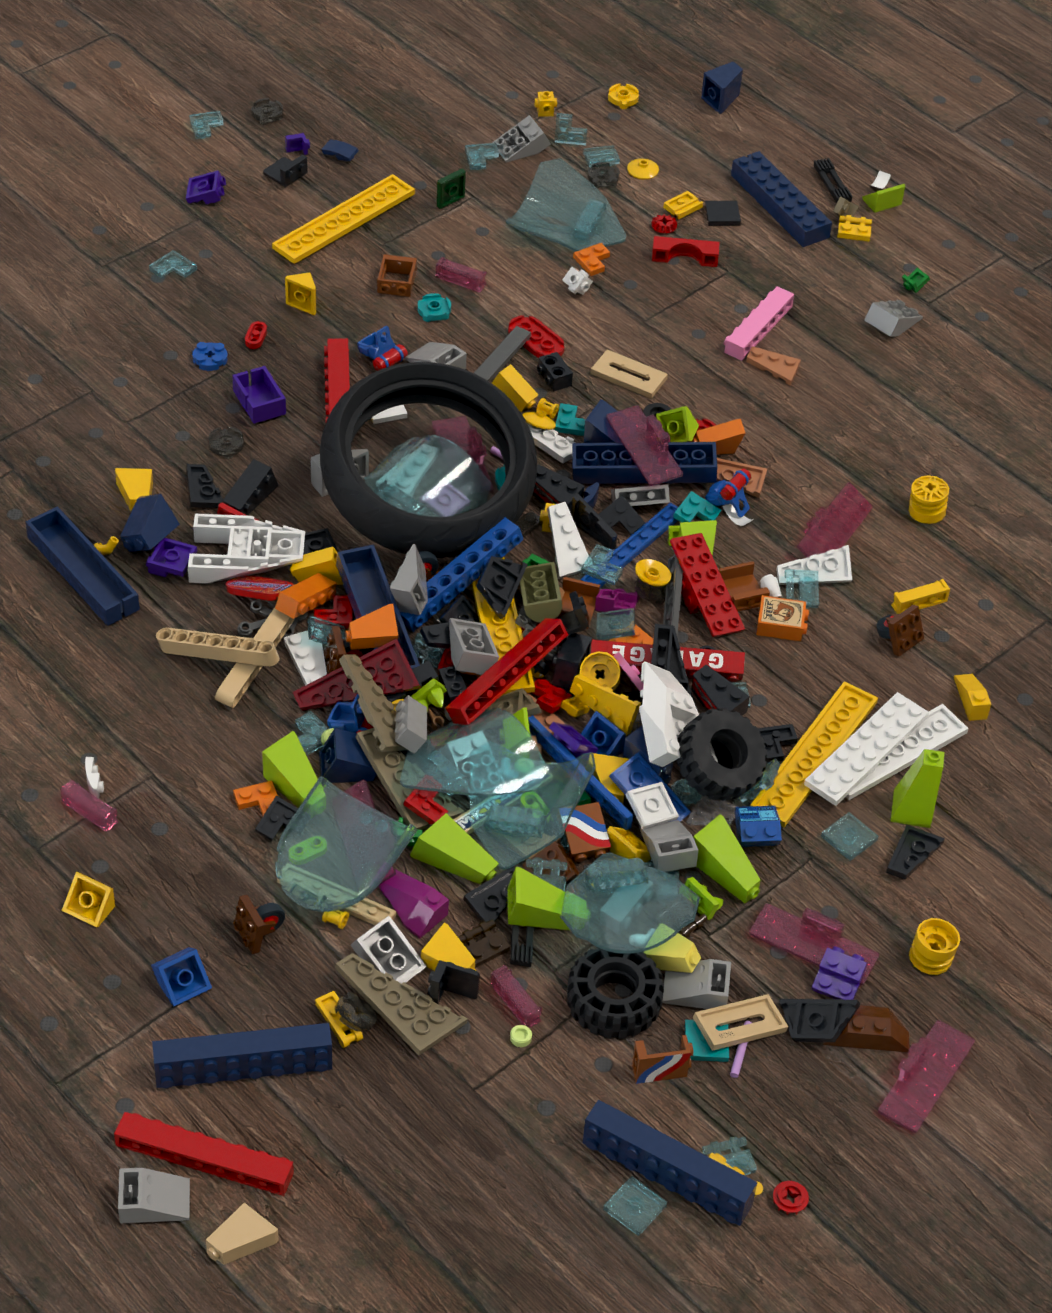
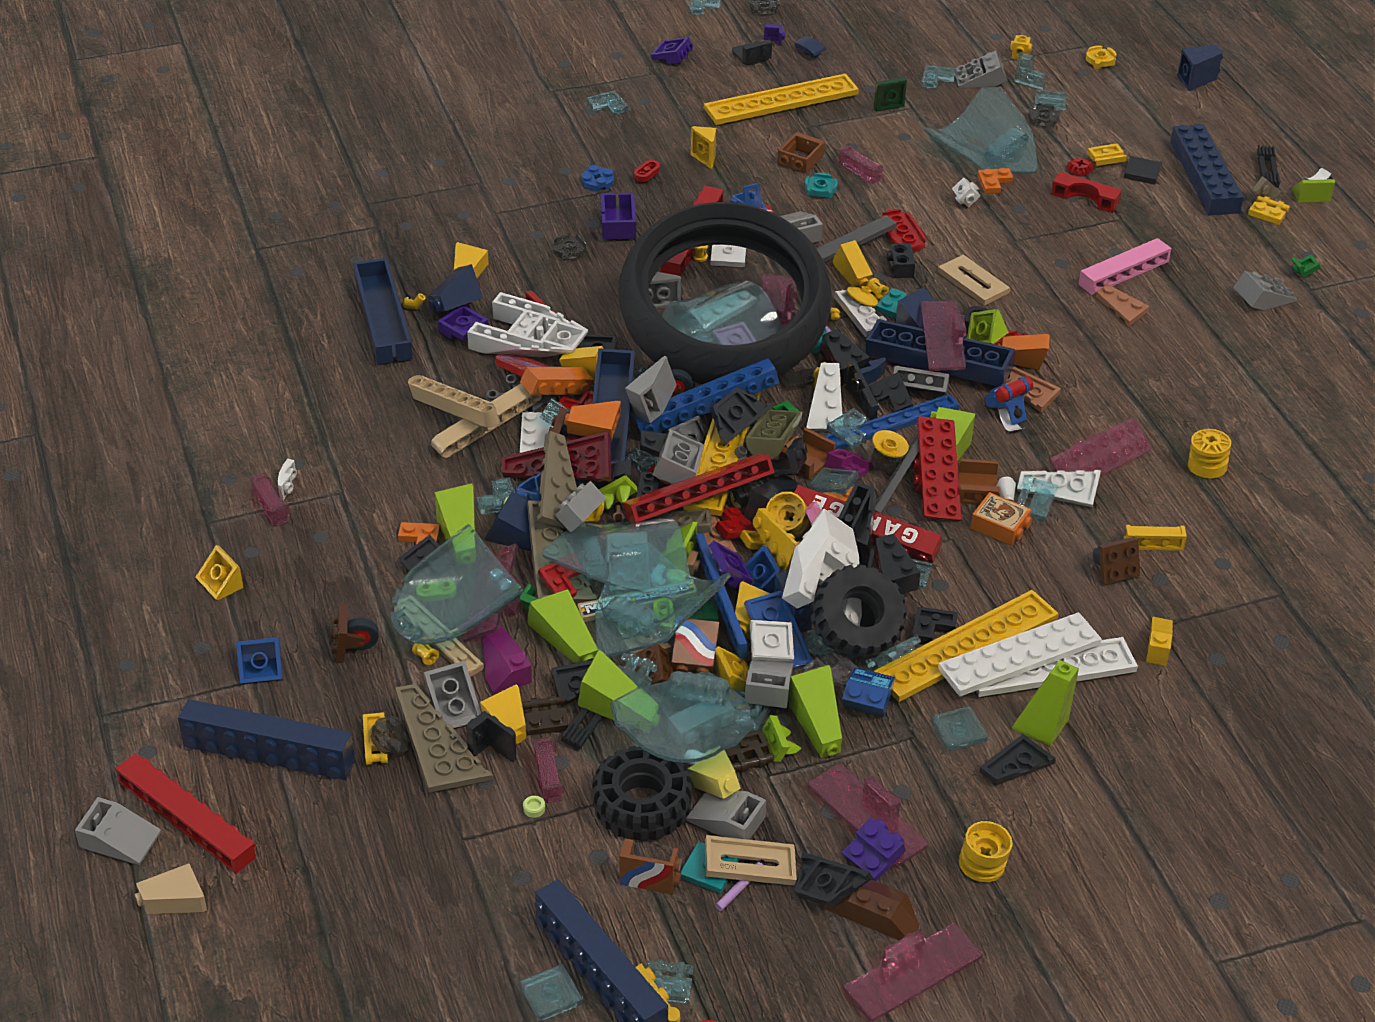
camera: 25 degrees right, 5 degrees down
(201, 487) = (525, 276): black wing -> none
(251, 488) = (565, 287): black wedge -> none
(643, 169) = (1086, 119): yellow dish -> none
(696, 506) = (971, 402): teal plate -> none

